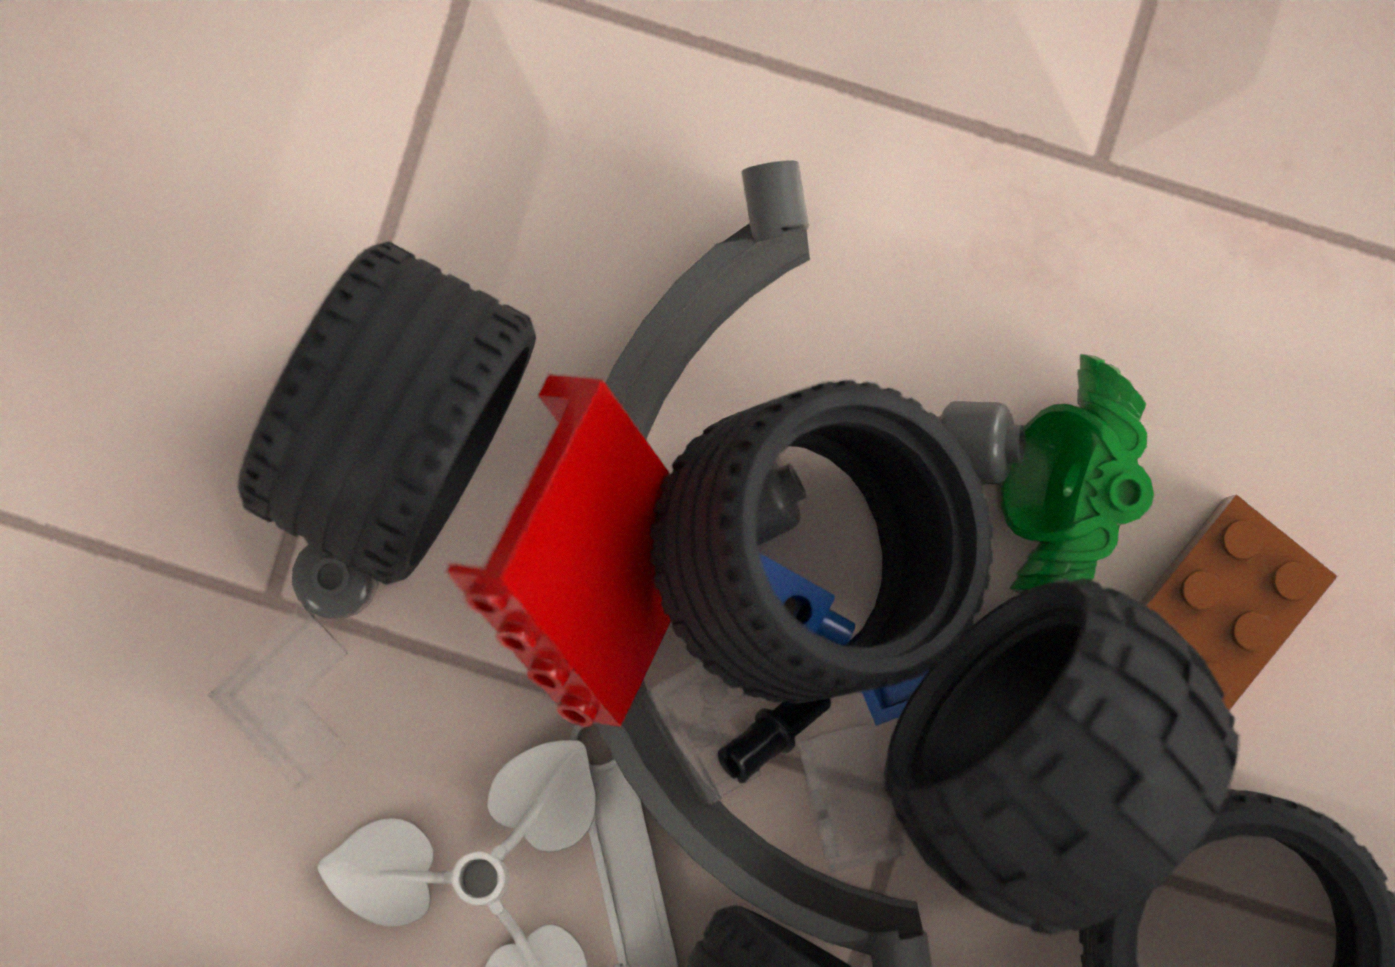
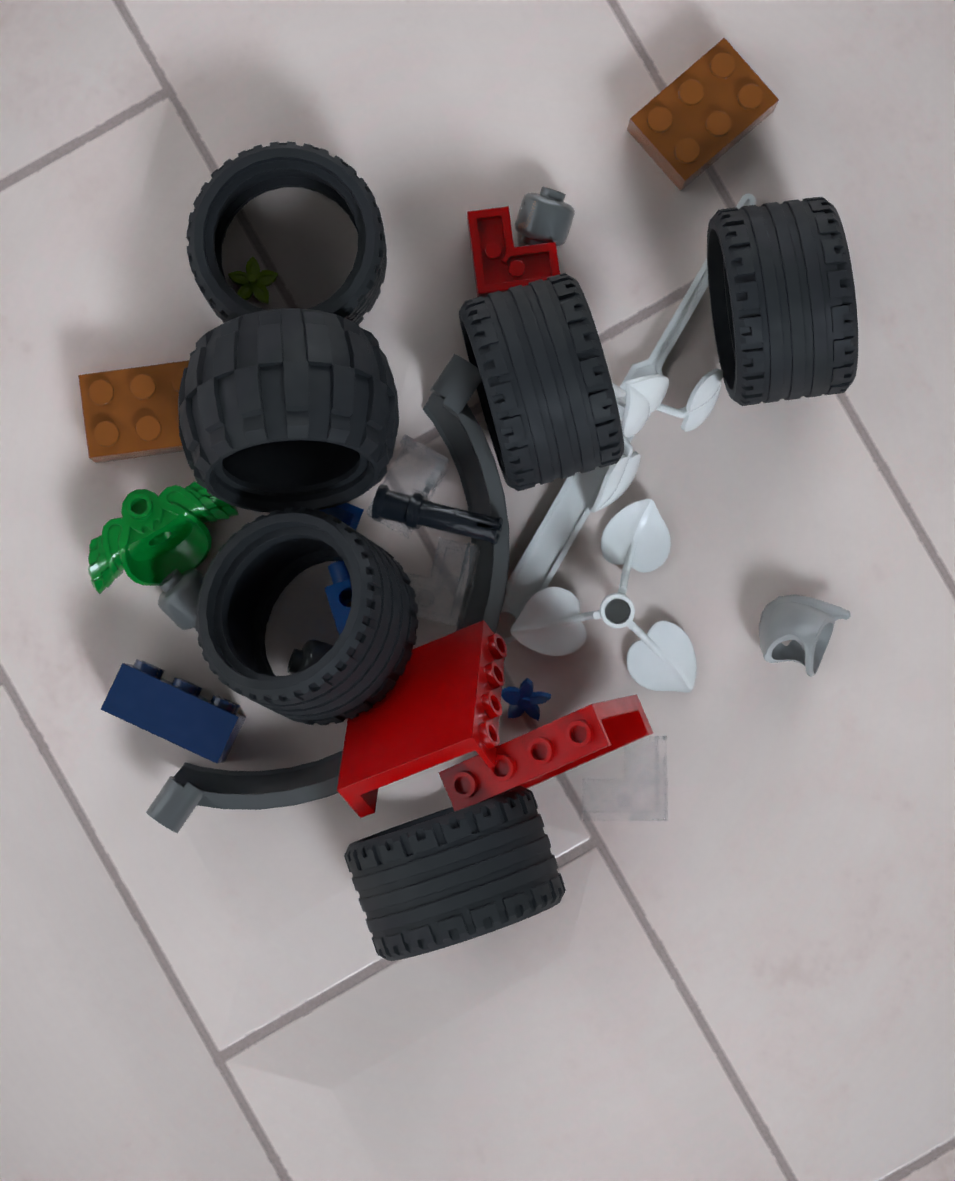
camera: 145 degrees left, 0 degrees up
(329, 585) = (560, 818): dark grey head -> none
(407, 642) = (548, 751): none -> red panel
(495, 681) = (524, 700): none -> blue plant
(768, 736) = (419, 551): black axle -> none
(811, 779) = (417, 512): none -> black pin
(873, 302) = (174, 710): none -> dark blue brick
(1243, 868) = (254, 281): none -> plant

